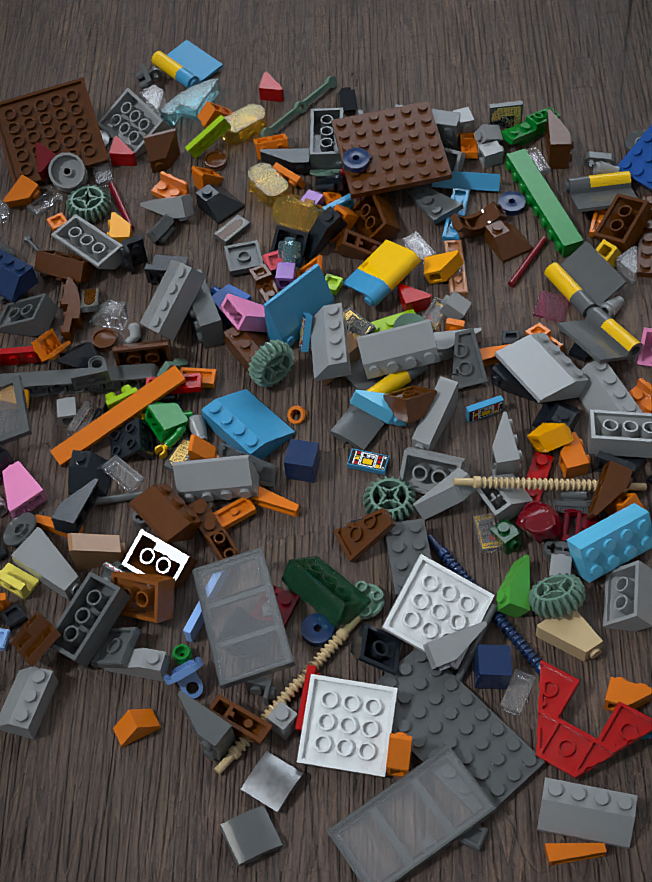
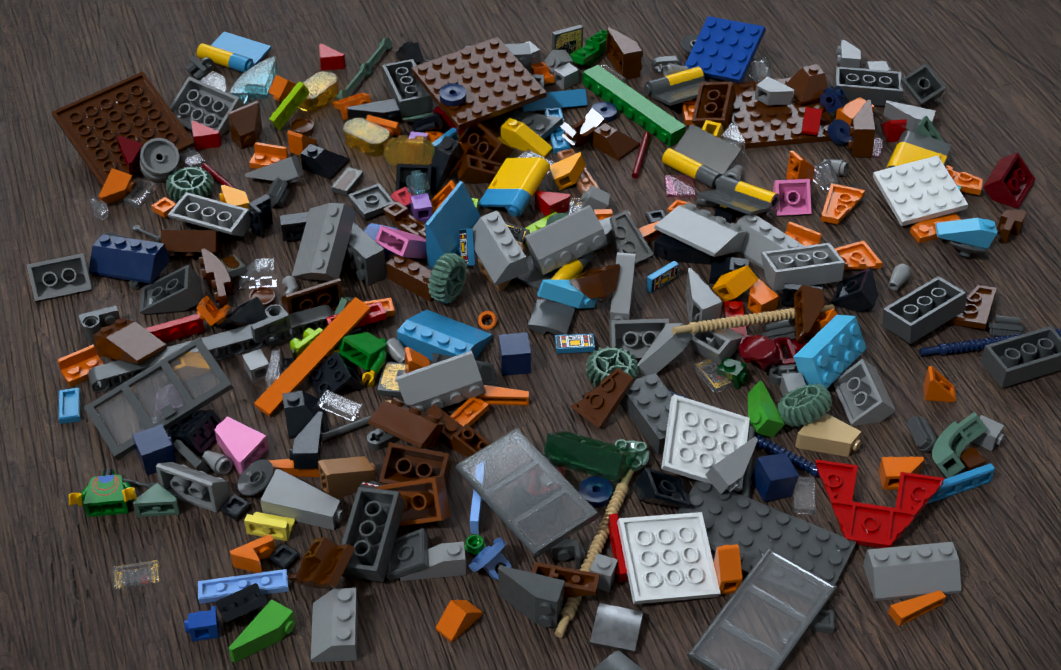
camera: 25 degrees left, 10 degrees down
(417, 219) = (523, 138): none -> yellow slope

